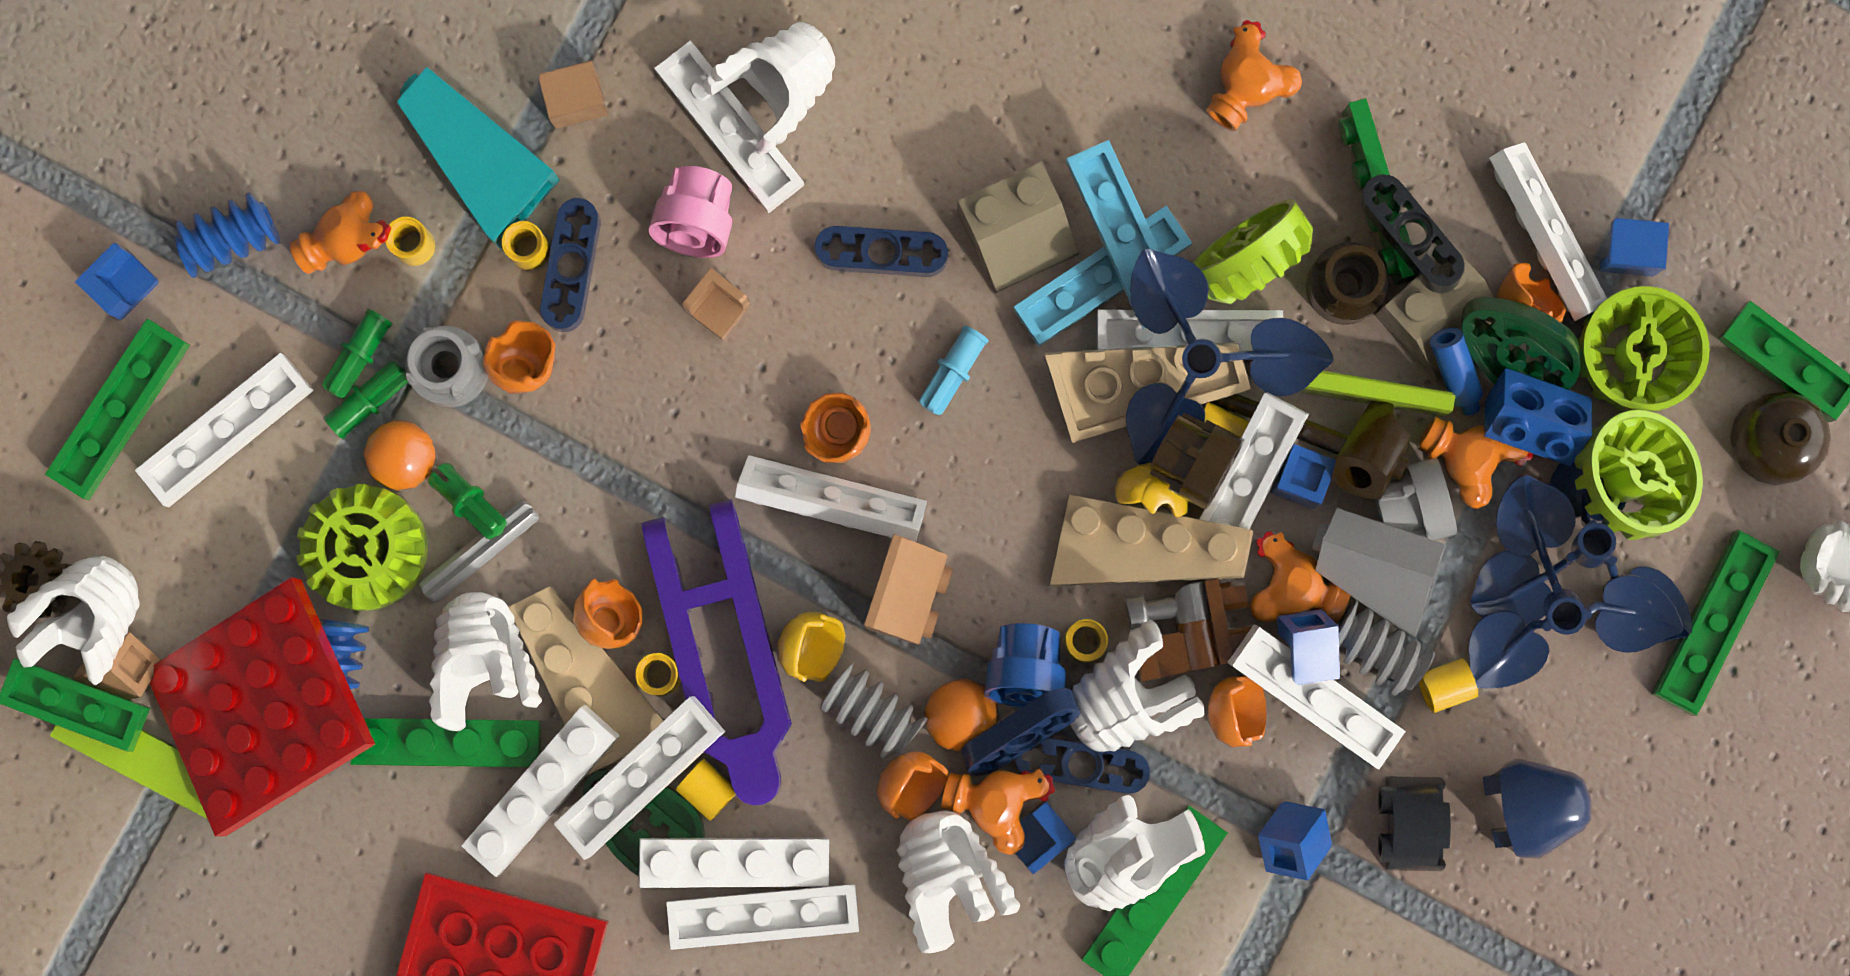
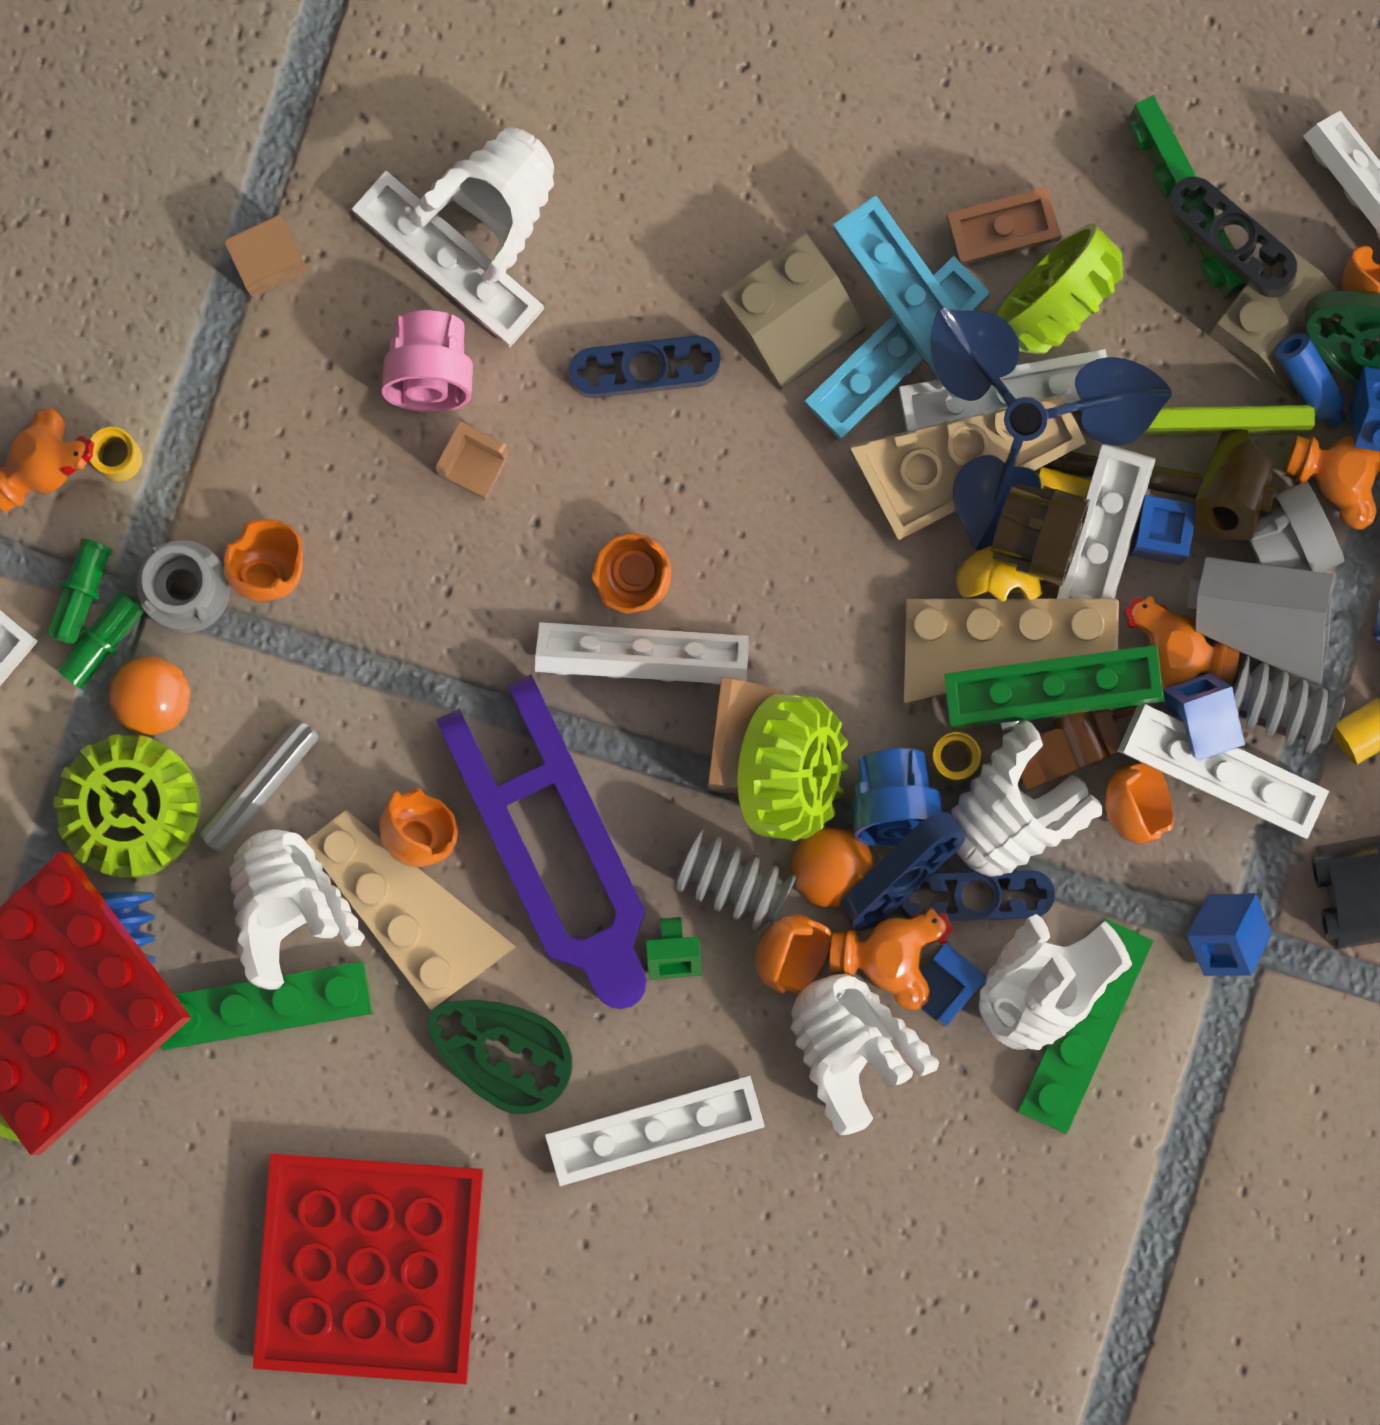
camera: 10 degrees left, 0 degrees up
(468, 502) = (237, 732): green axle -> none
(482, 161) = (177, 348): teal slope -> none
(514, 234) = (238, 417): yellow beam -> none
(540, 790) = (381, 1038): white plate -> none
(587, 233) = (285, 409): dark blue beam -> none
(639, 777) = (489, 1001): white plate -> none
(642, 669) = (470, 876): yellow beam -> none
(706, 790) = (565, 1002): yellow beam -> none
(733, 862) = (611, 1076): white plate -> none
(808, 765) = (673, 954): none -> green tile
(811, 646) = (651, 820): yellow hair -> none
(939, 623) = (790, 767): none -> lime gear
(953, 370) = (750, 485): medium azure axle -> none
(1183, 597) = (1054, 687): none -> green plate
(1214, 188) = (1003, 226): none -> nougat plate
(1249, 78) = (1019, 96): orange animal -> none
(1364, 266) = (1175, 278): dark brown piece -> none

